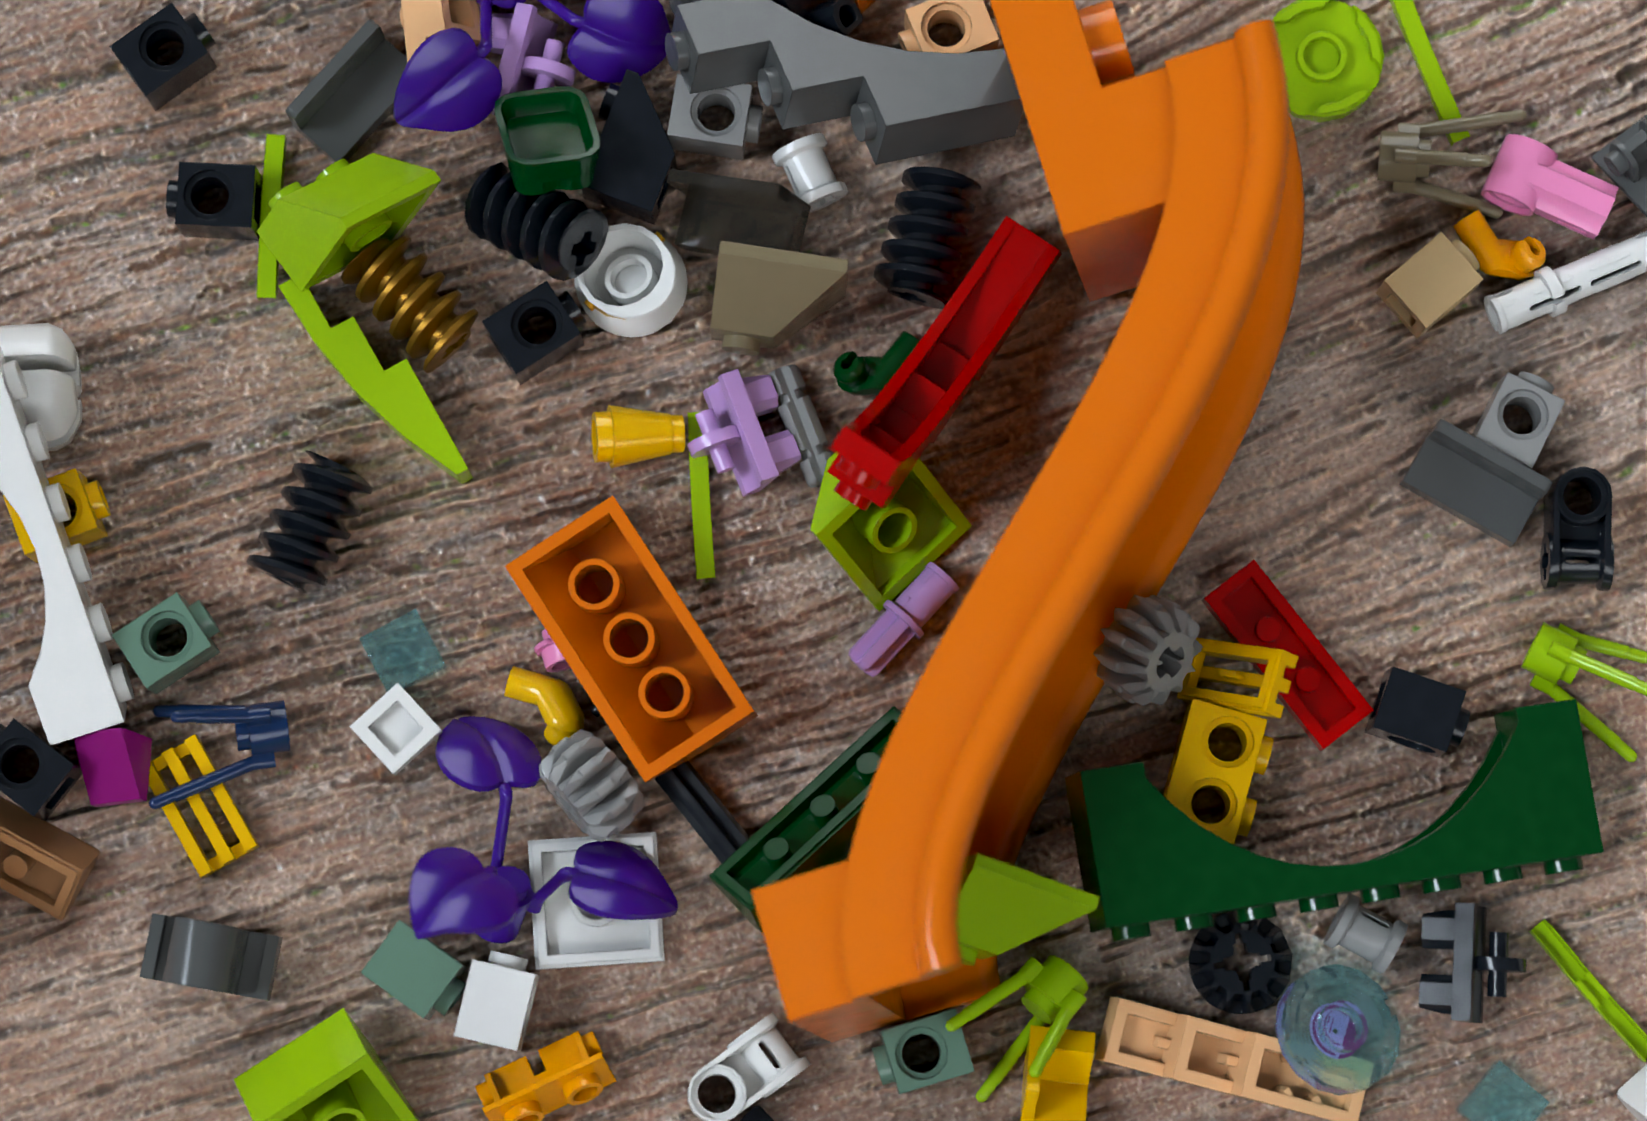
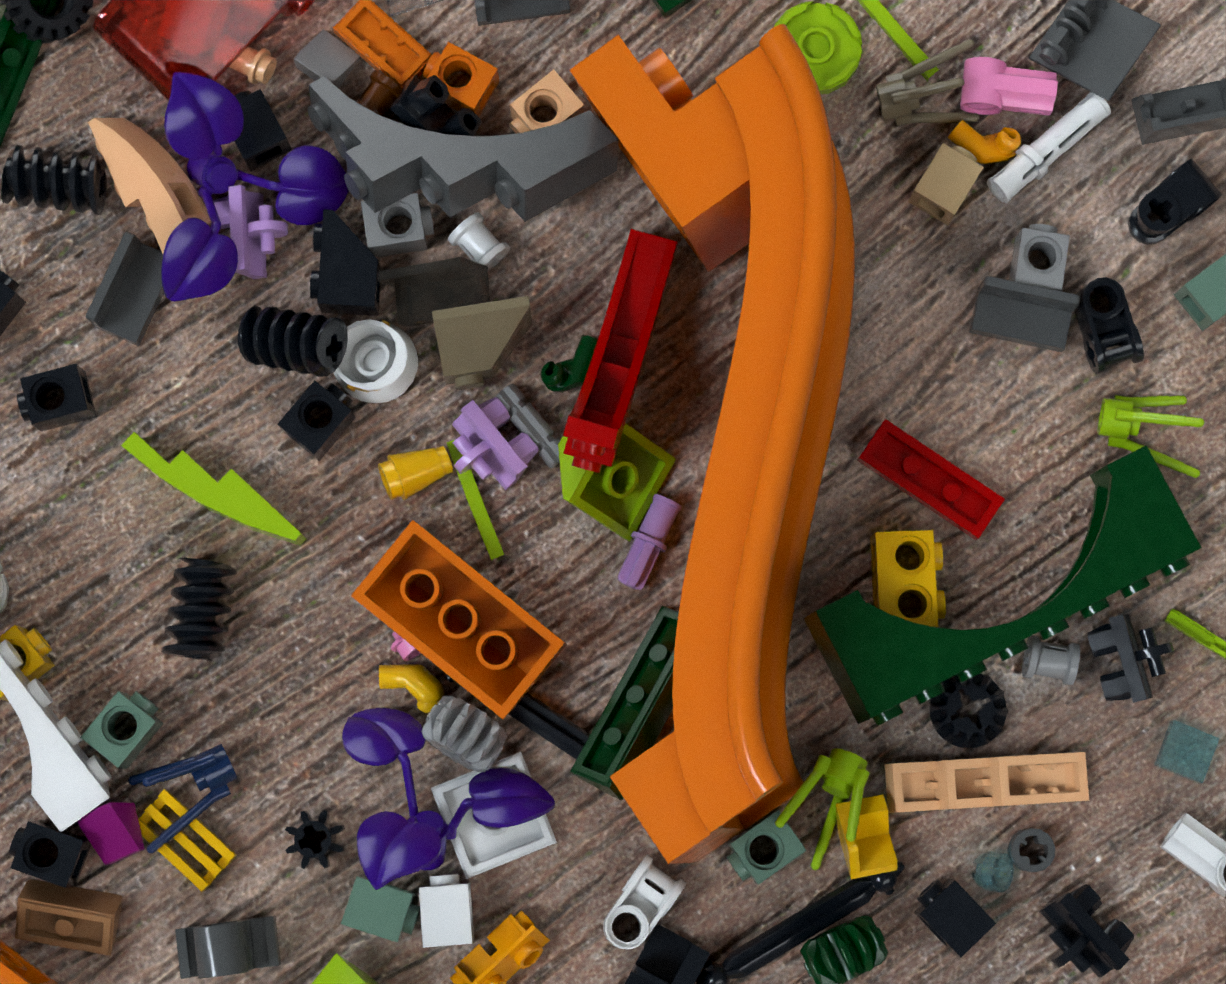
camera: 20 degrees left, 0 degrees up
(272, 183) = (99, 396): lime piece -> none
(345, 210) = (152, 379): lime slope -> none
(349, 845) = (303, 833): none -> black gear
(396, 729) = (310, 738): white panel -> none
(403, 651) = (296, 681): clear light blue tile -> none
(410, 300) = (220, 425): pearl gold piece -> none
(548, 139) = (283, 277): dark green piece -> none
(924, 234) = (574, 261): black piece -> none
(1010, 906) = (800, 723): lime slope -> none
(1148, 650) = (831, 507): light grey gear -> none
(1269, 683) = (928, 503): yellow tile -> none
(1337, 1030) = (1053, 735): clear light blue tile -> none
(1418, 712) = (1037, 490): black brick -> none

